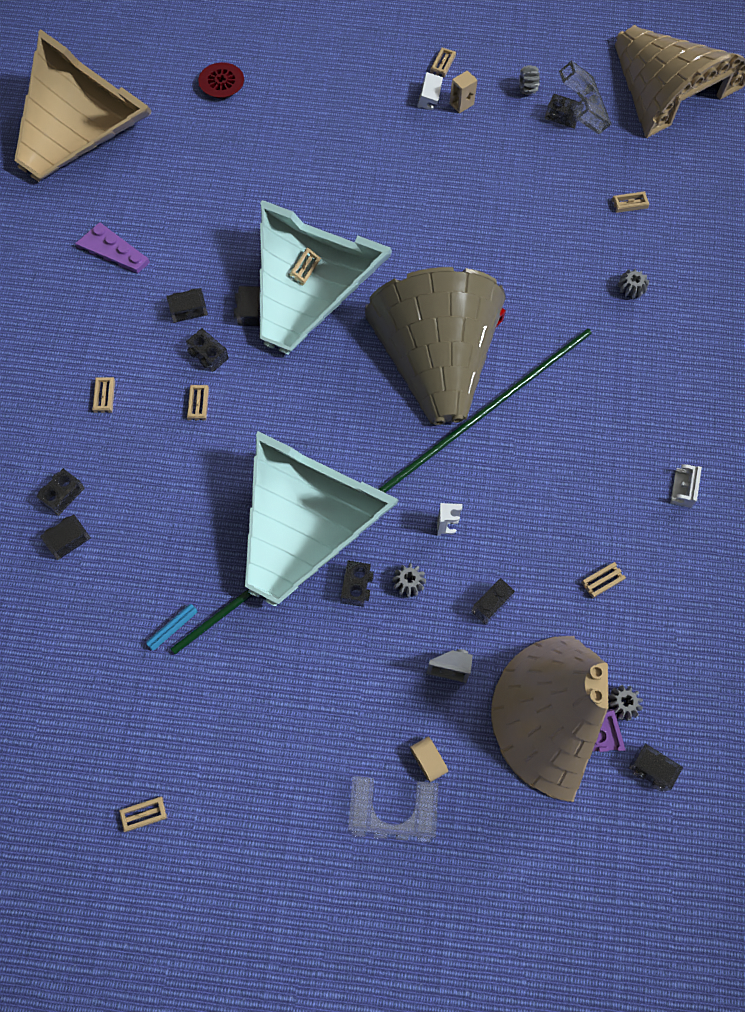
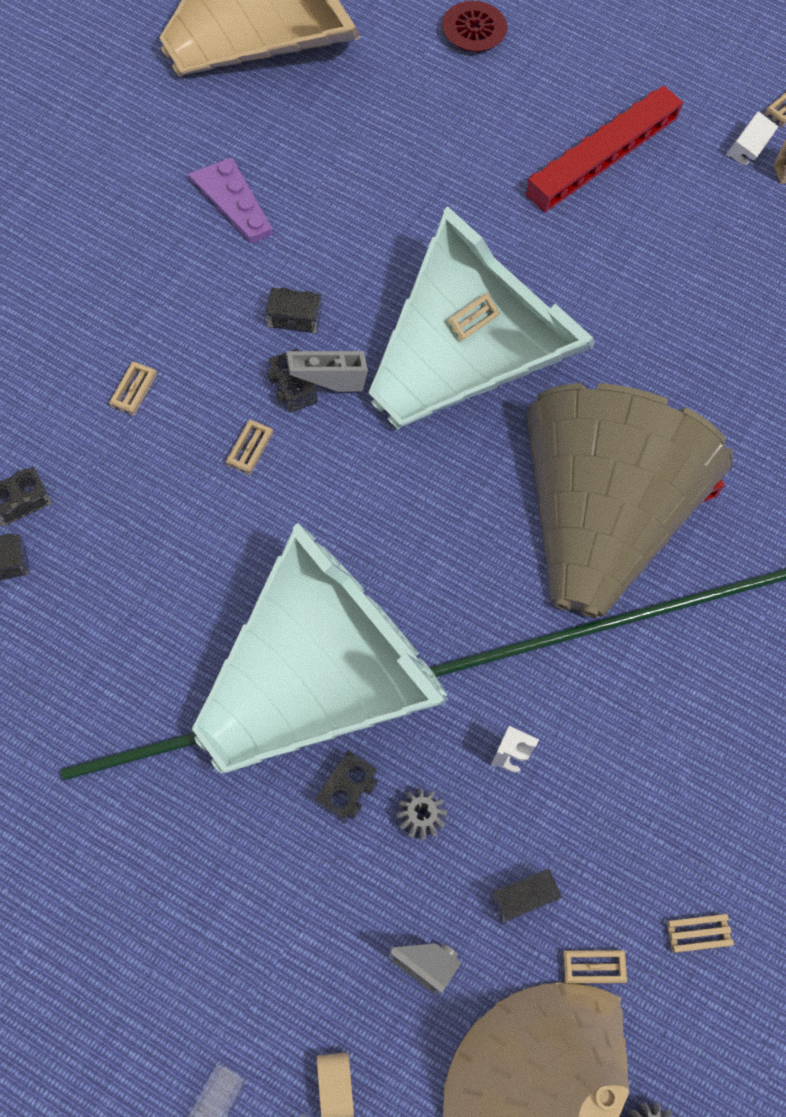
camera: 20 degrees right, 0 degrees up
(171, 627) = (76, 740): dark azure axle -> none
(229, 332) = (331, 369): none -> light grey slope
(248, 306) = (373, 338): clear smoke brick -> none
(339, 130) = (603, 148): none -> red brick
(536, 632) = (568, 967): none -> tan tile

